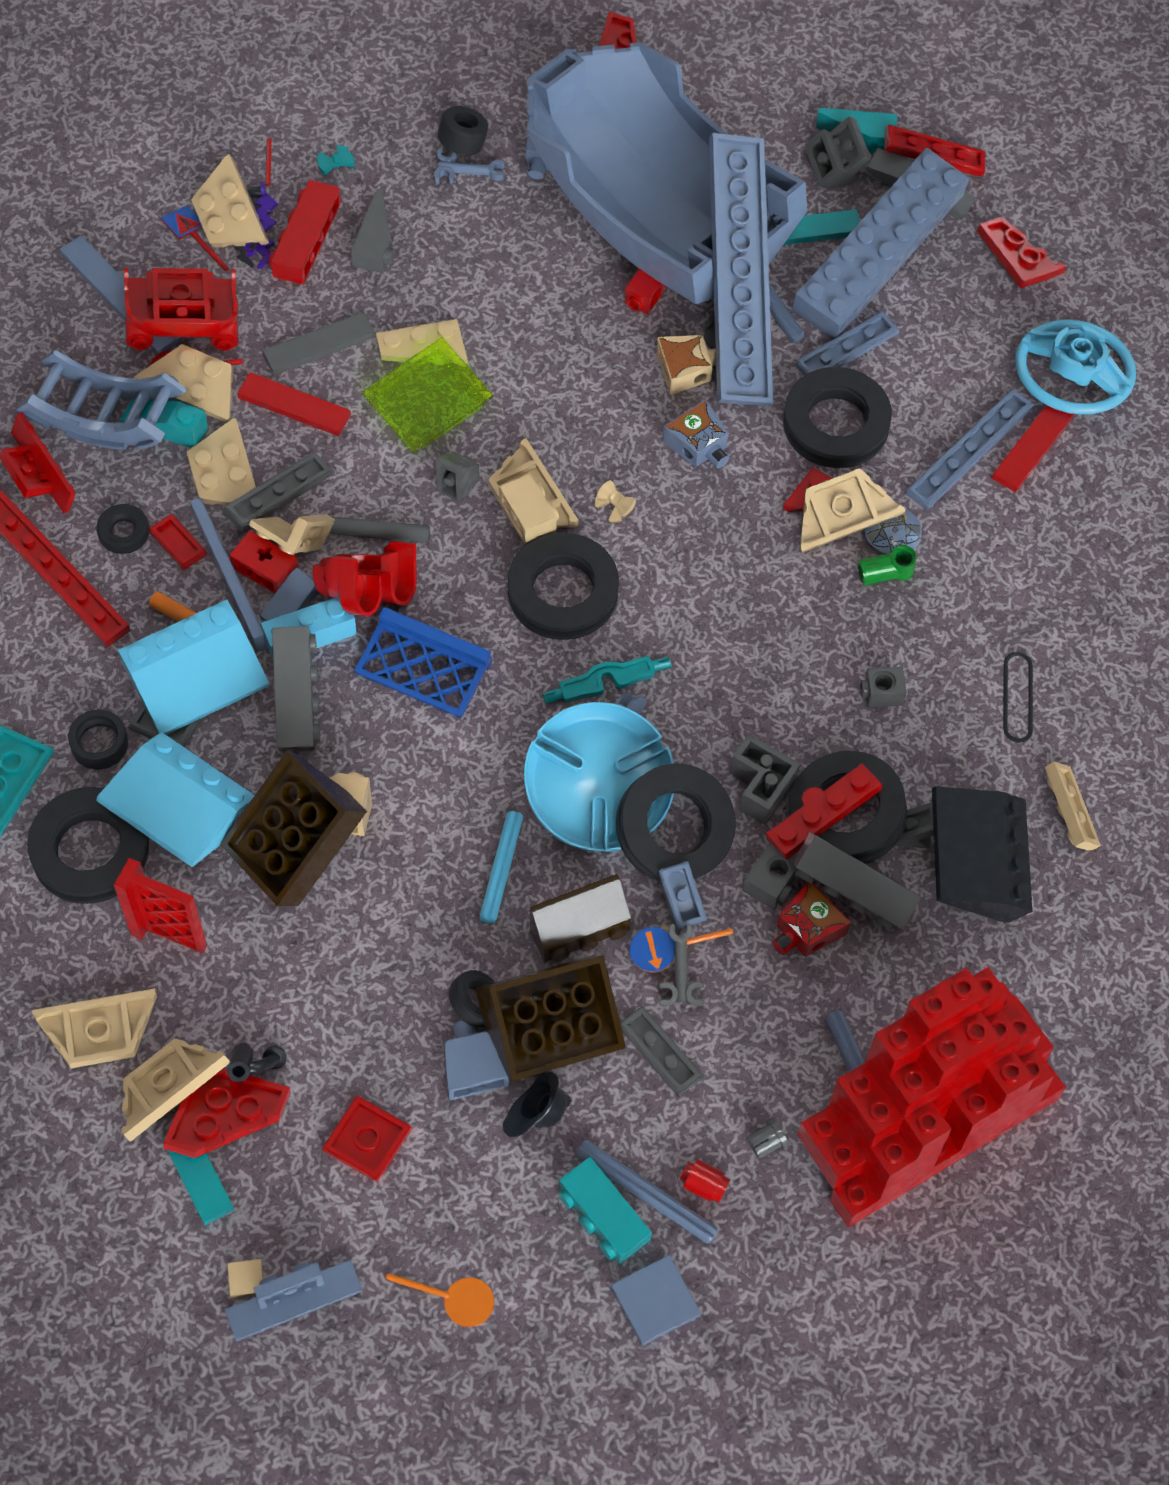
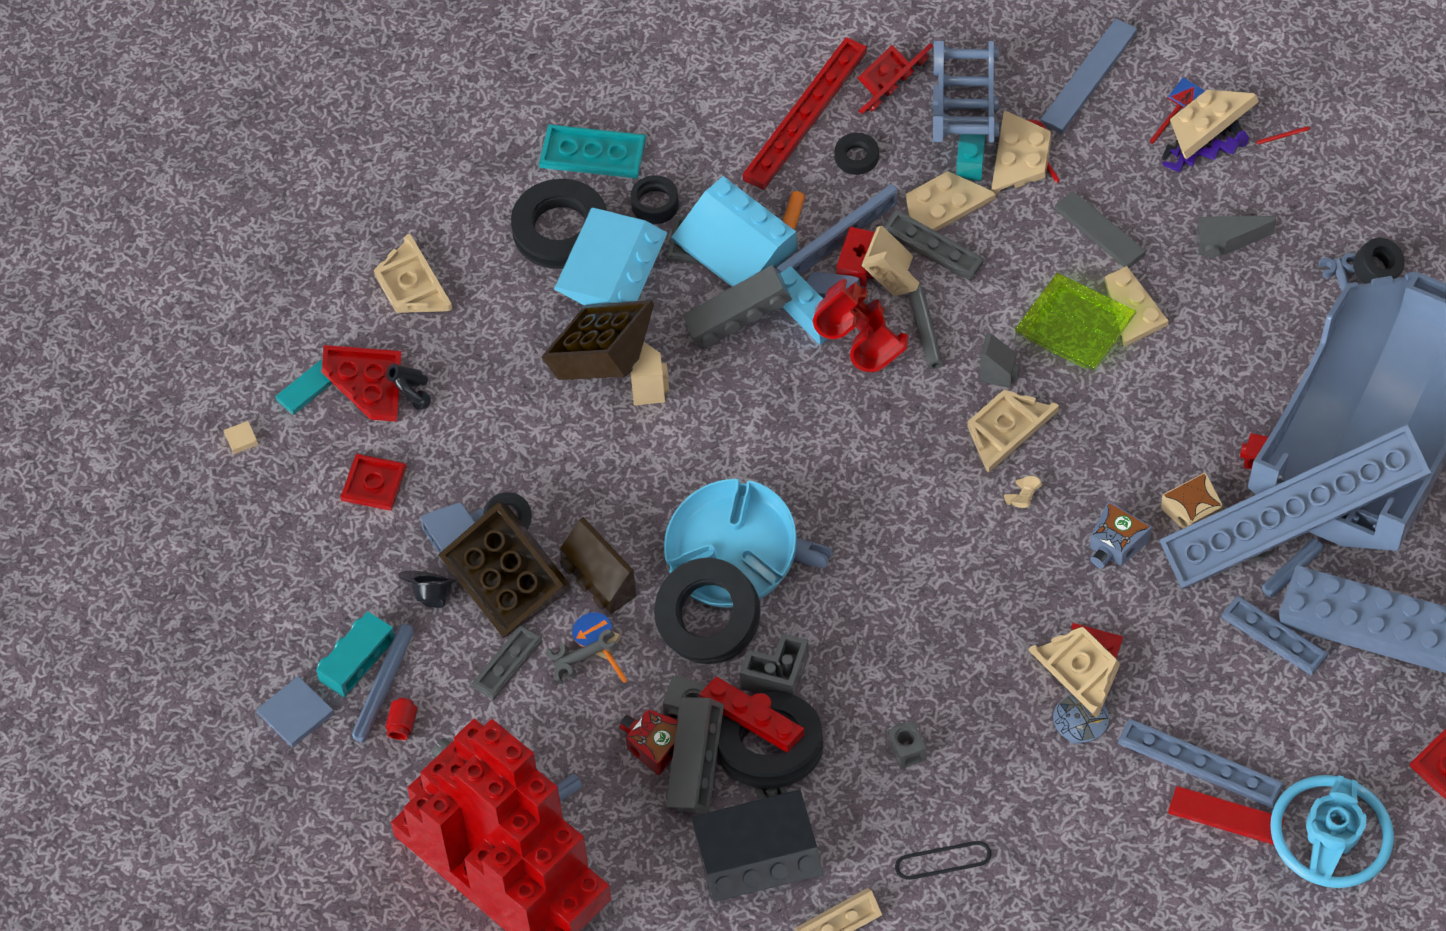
camera: 80 degrees right, 5 degrees down
(158, 908) = (503, 267): red fence -> none
(165, 1082) = (374, 332): tan wing -> none
(177, 541) = (859, 192): red tile -> none
(180, 305) = (1087, 118): red piece -> none
(292, 1296) = (232, 469): sand blue bracket -> none
(294, 404) = (1029, 231): red tile -> none
(305, 232) = (1211, 182): red brick -> none
(342, 158) = (1310, 188): teal piece -> none
(433, 640) = (827, 394): blue fence -> none
(466, 1301) = (262, 586): orange piece -> none
(501, 867) = (632, 506): medium azure axle -> none
(527, 508) = (977, 422): tan brick -> none
(563, 622) = (921, 443): black tyre -> none
(591, 683) = (849, 544): teal piece -> none
(682, 895) = (643, 636): sand blue slope -> none
(824, 226) = (1404, 574): teal tile -> none
(837, 450) = (1178, 675): black tyre -> none
(885, 566) = (1035, 719): green piece -> none

